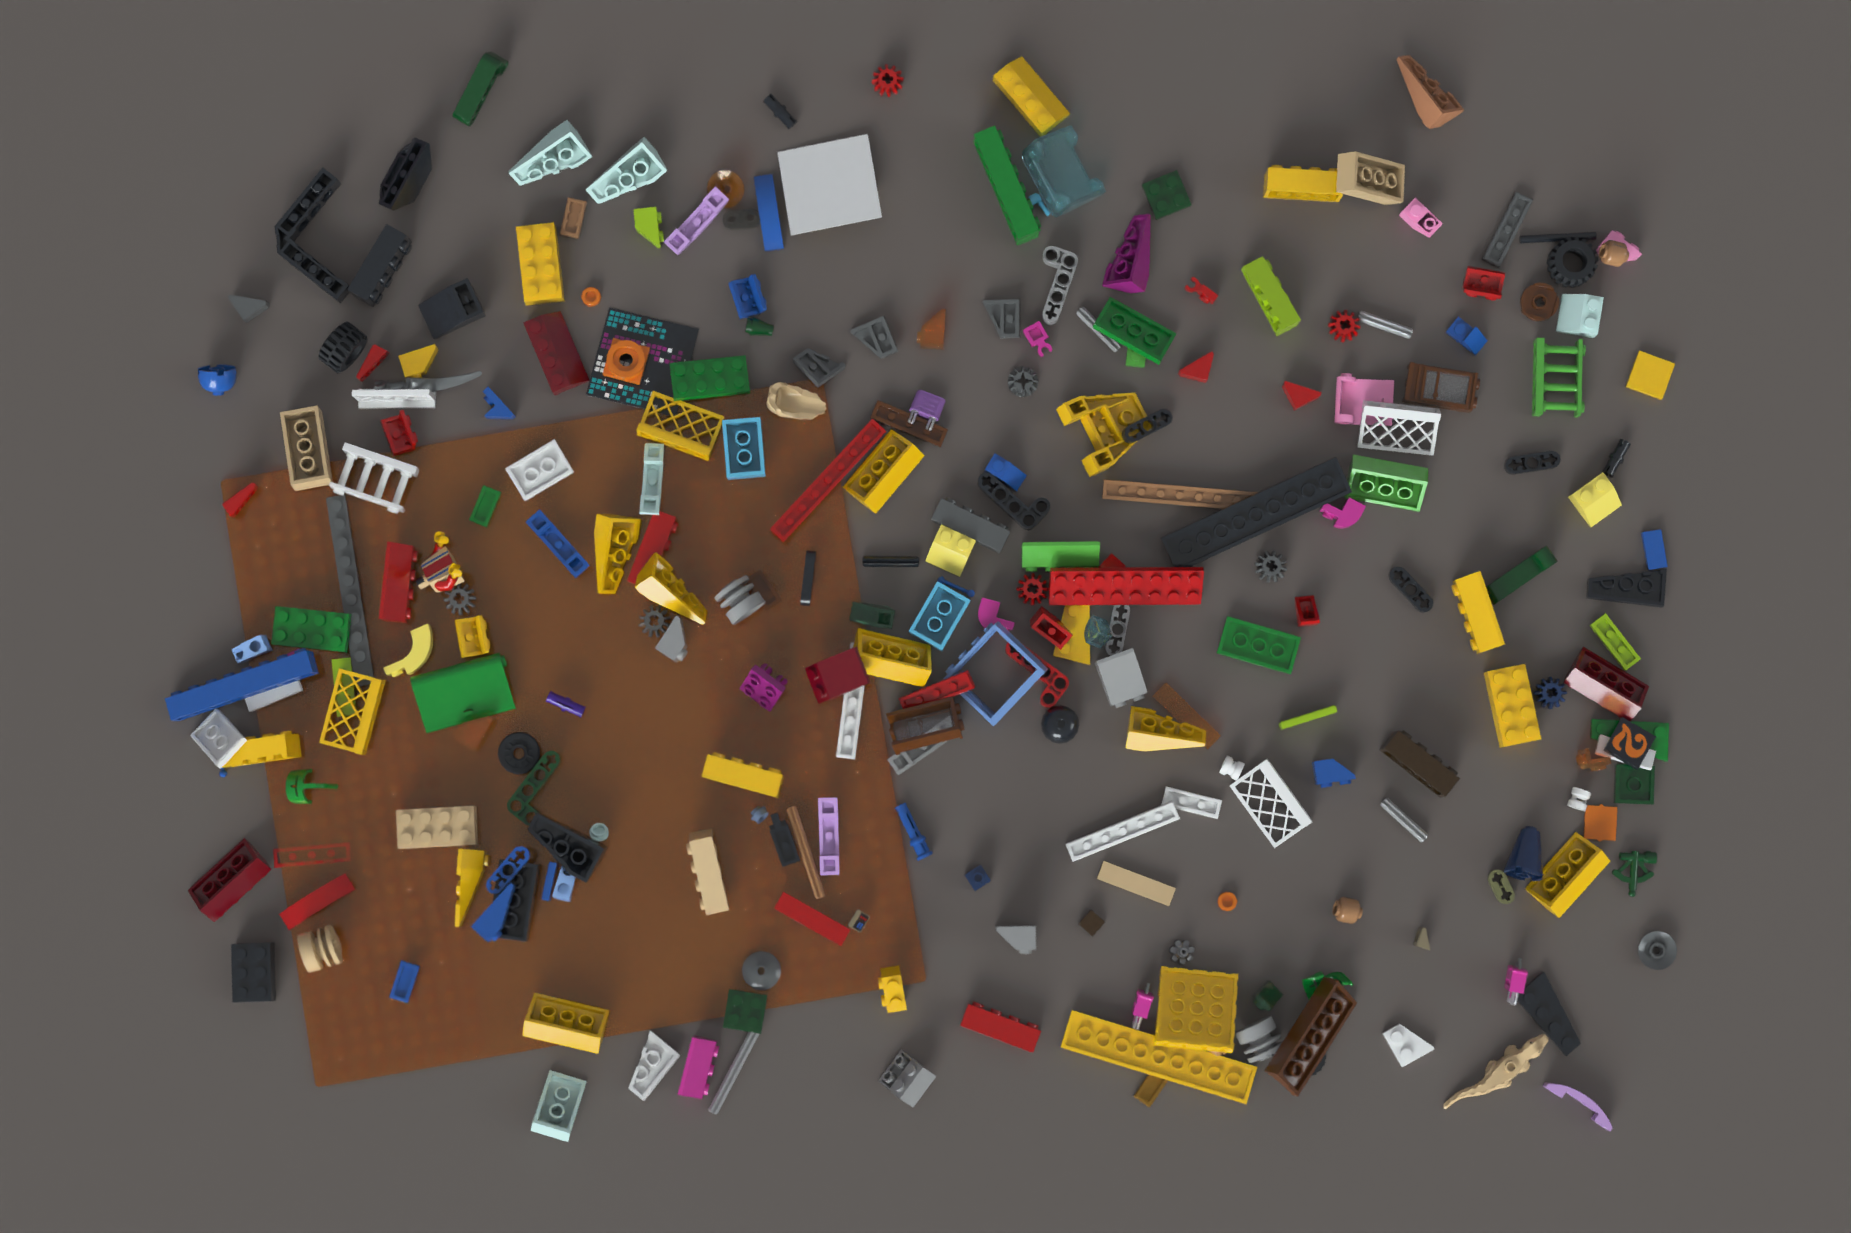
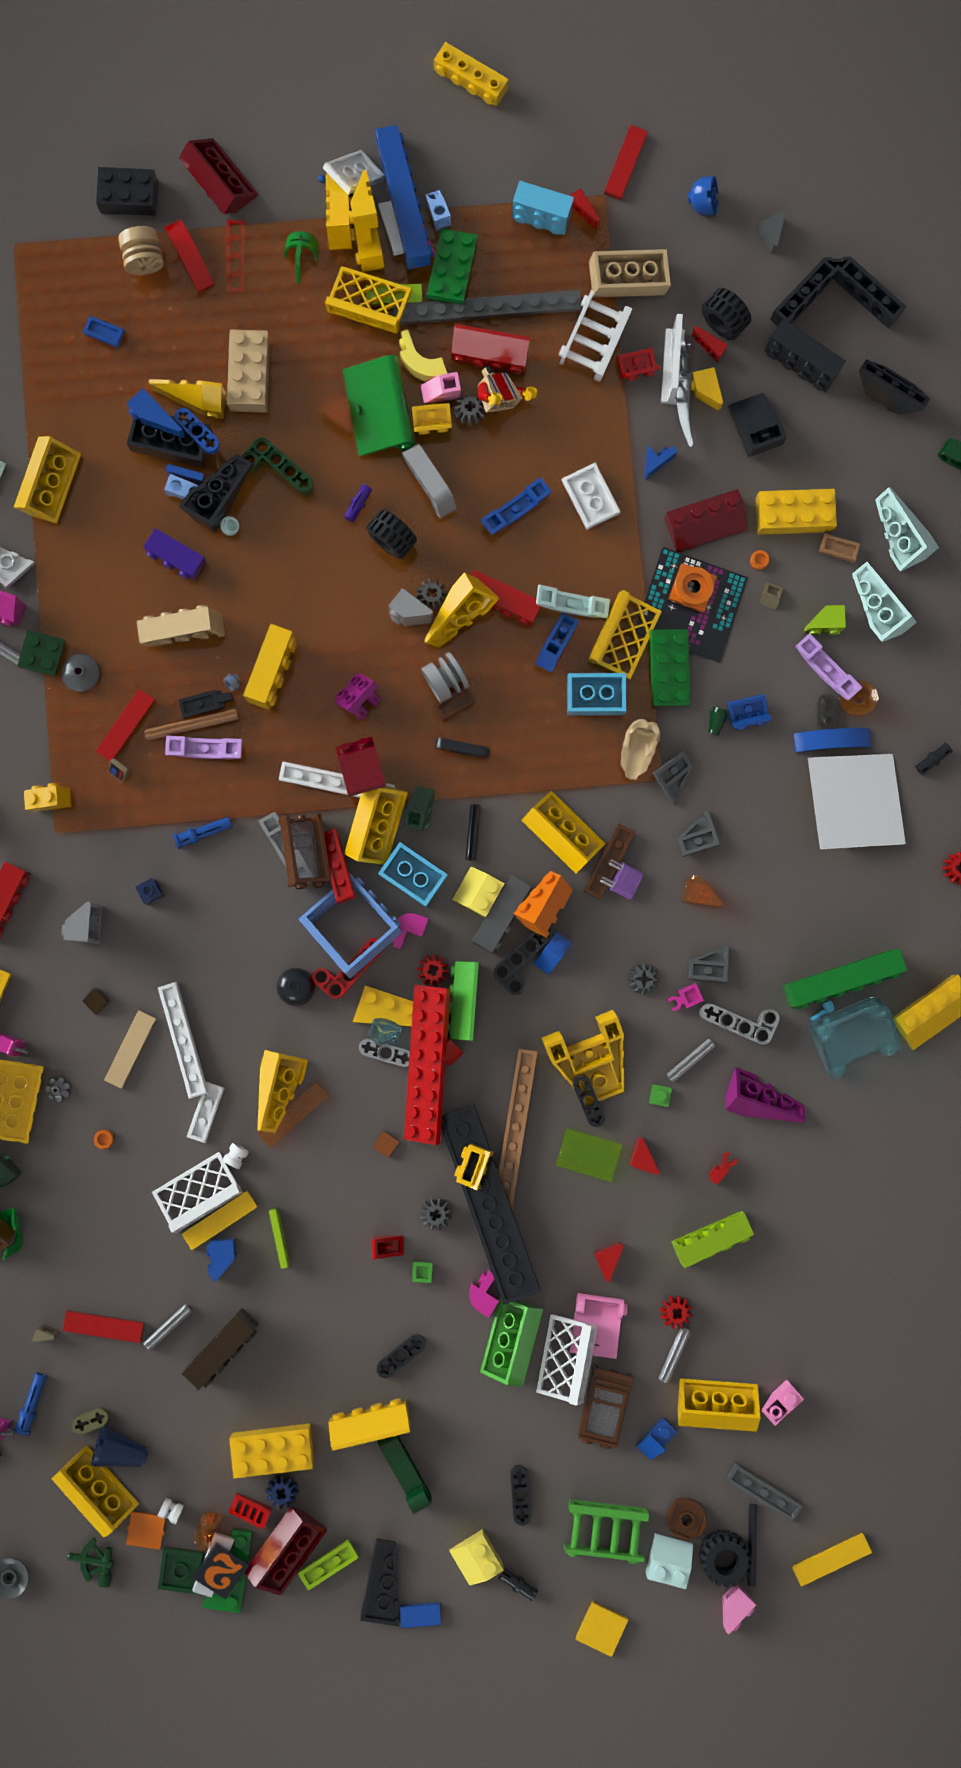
camera: 90 degrees right, 0 degrees up
(102, 628) = (470, 74): none -> yellow brick
(184, 461) = (625, 162): none -> red tile
(246, 541) = (542, 208): none -> medium azure brick
(280, 716) = (366, 224): none -> yellow wedge
(441, 629) = (441, 388): none -> bright pink slope
(485, 506) = (559, 441): green tile -> none
(506, 753) = (310, 444): black wheel -> none
(537, 632) = (430, 480): none -> light grey beam
(598, 665) = (391, 534): none -> black tyre
(613, 543) = (511, 560): yellow wedge -> none
(626, 282) = (771, 595): none -> dark tan slope
(634, 885) = (174, 555): none -> dark purple brick
(693, 492) = (557, 642): none -> blue slope
(827, 480) = (558, 775): red plate -> none
(958, 484) = (543, 903): none -> orange wedge
(970, 593) = (435, 909): blue hinge -> none
(1050, 627) = (392, 984): red slope -> none
(1121, 678) = (335, 1052): light grey slope -> none
(1134, 330) = (686, 1095): green plate -> none
(1166, 195) = (823, 1141): dark green plate -> none
(1200, 422) = (588, 1154): none -> clear neon green tile
(1207, 621) = (385, 1144): none -> dark orange tile
(1224, 524) = (480, 1169): none -> yellow window
(1258, 645) = (357, 1194): green plate -> none
(1296, 778) = (219, 1220): none -> yellow tile
(1301, 183) = (825, 1284): yellow brick -> none
(1328, 575) = (422, 1272): none -> bright green plate
(1347, 910) = (81, 1260): medium nougat head -> none
(1370, 178) = (827, 1354): tan brick -> none
(1409, 883) = (103, 1326): none -> red tile
(1429, 279) = (718, 1405): none -> yellow slope
(1430, 101) = (904, 1423): nougat wedge -> none
(1483, 283) = (710, 1462): red bracket -> none
(1499, 950) = (28, 1413): none -> blue pin
(1564, 161) = (831, 1559): none -> yellow tile
(1571, 705) = (247, 1517): none -> red slope
(1613, 253) = (731, 1605): medium nougat head -> none

